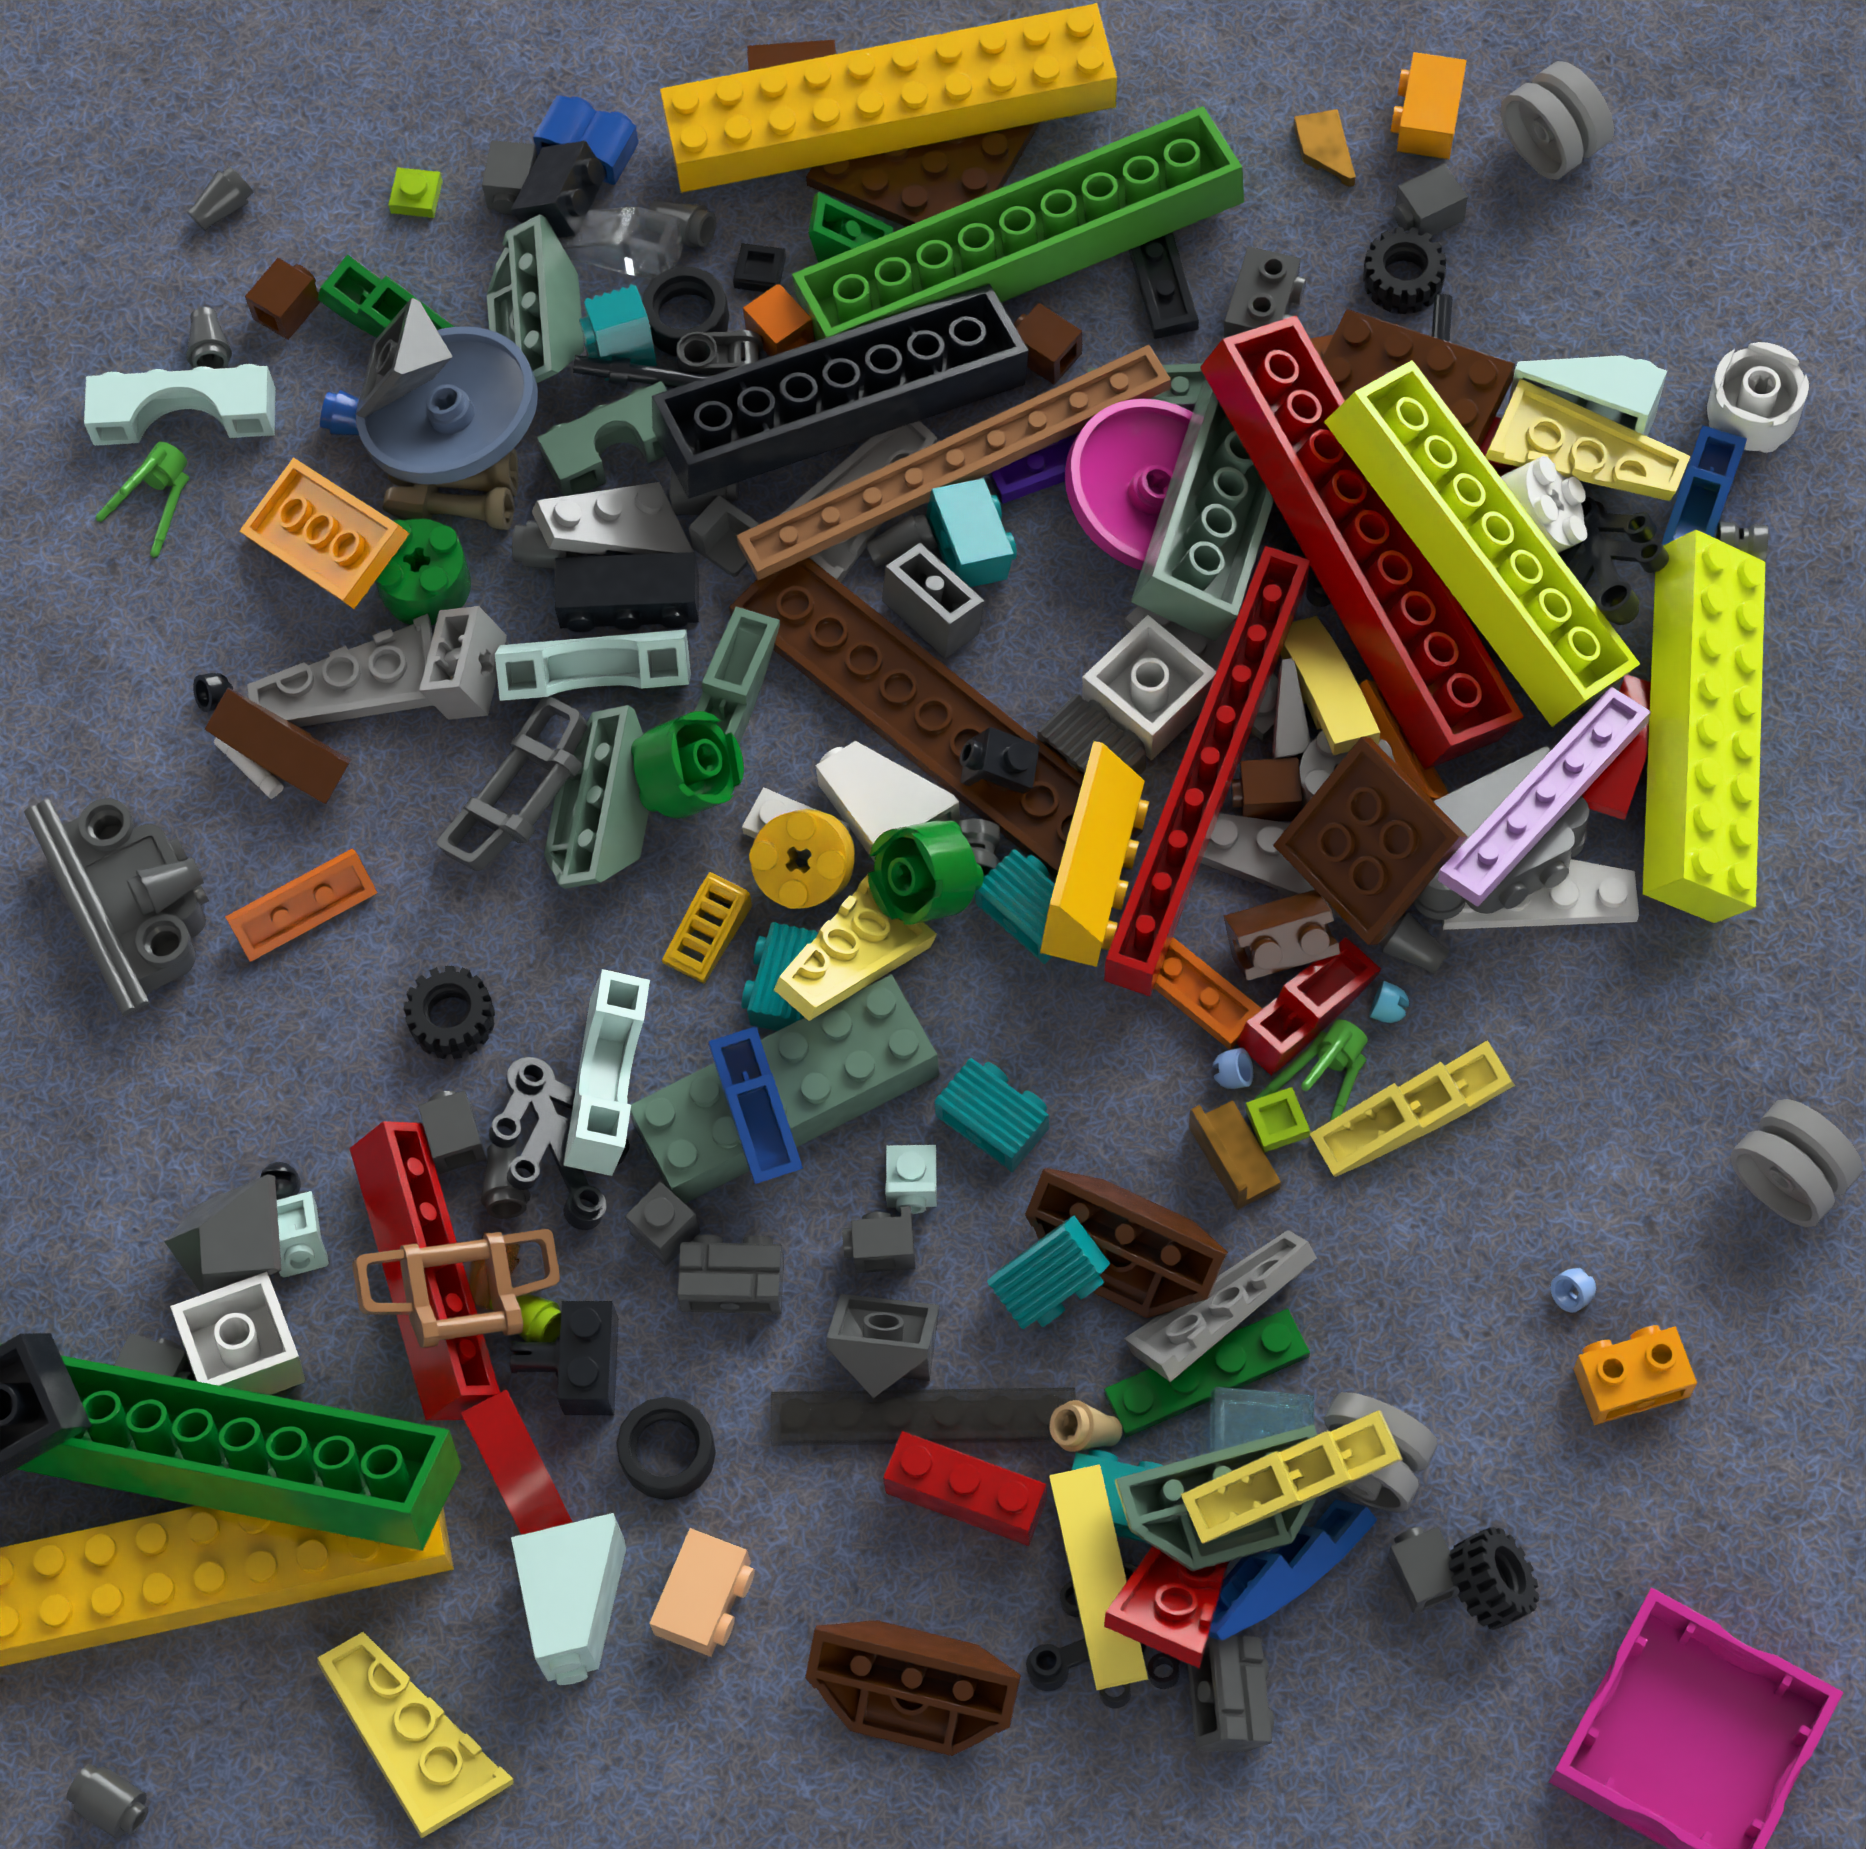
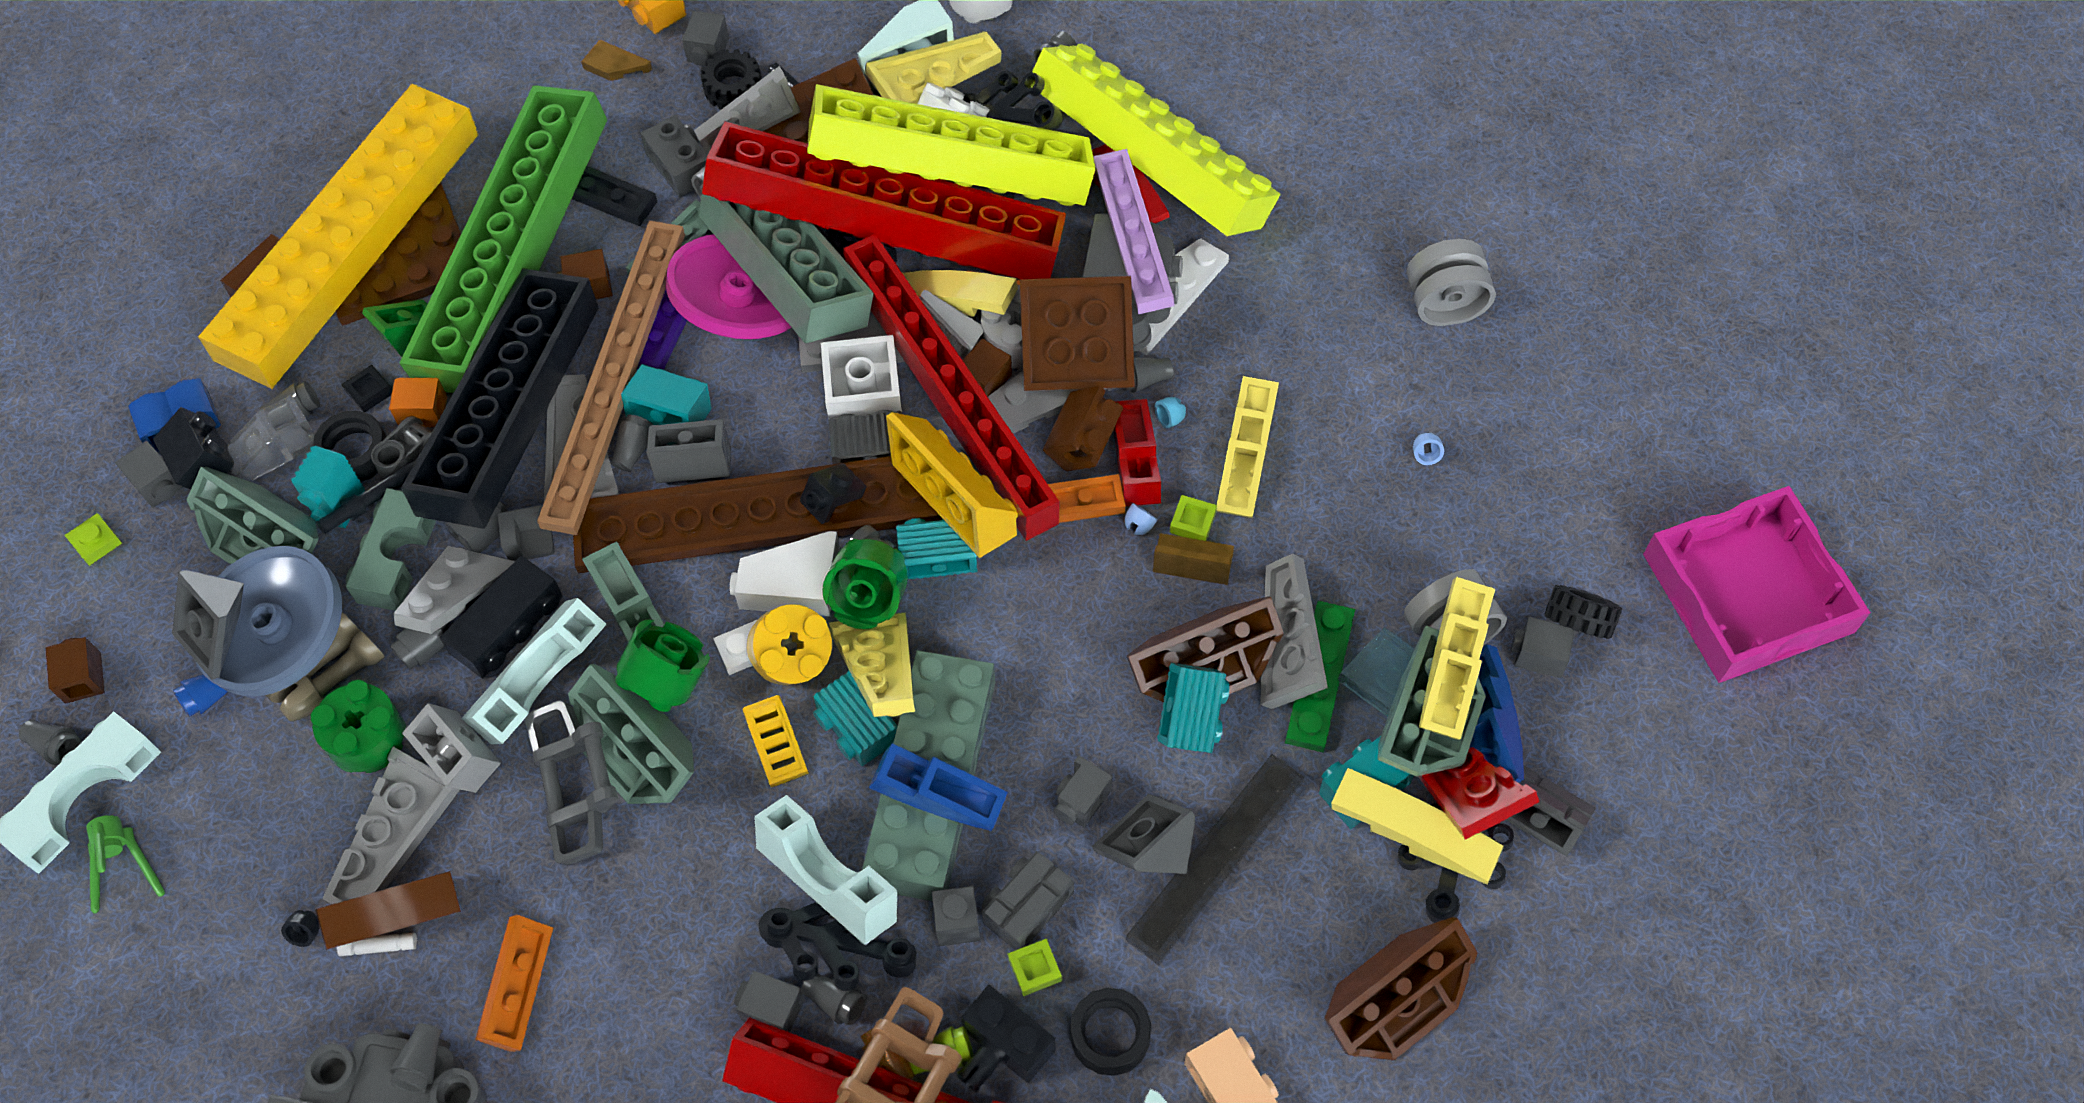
camera: 55 degrees left, 5 degrees down
(324, 533) = (271, 763): light orange plate -> none
(366, 299) = (135, 620): green slope -> none
(457, 1038) = (672, 921): black tyre -> none
(673, 1333) = (1034, 967): none -> lime plate
(911, 1177) = (1051, 746): light aqua bracket -> none
(965, 1488) = (1290, 864): red brick -> none
(993, 1113) = (1053, 667): teal brick -> none
(1082, 1427) = (1301, 771): tan cone -> none
(1336, 1049) = (1179, 457): bright green plant -> none
(1349, 328) = (757, 108): none -> light grey wing
(1634, 1373) = (1507, 455): light orange brick -> none
(1705, 484) = (1017, 52): blue slope -> none

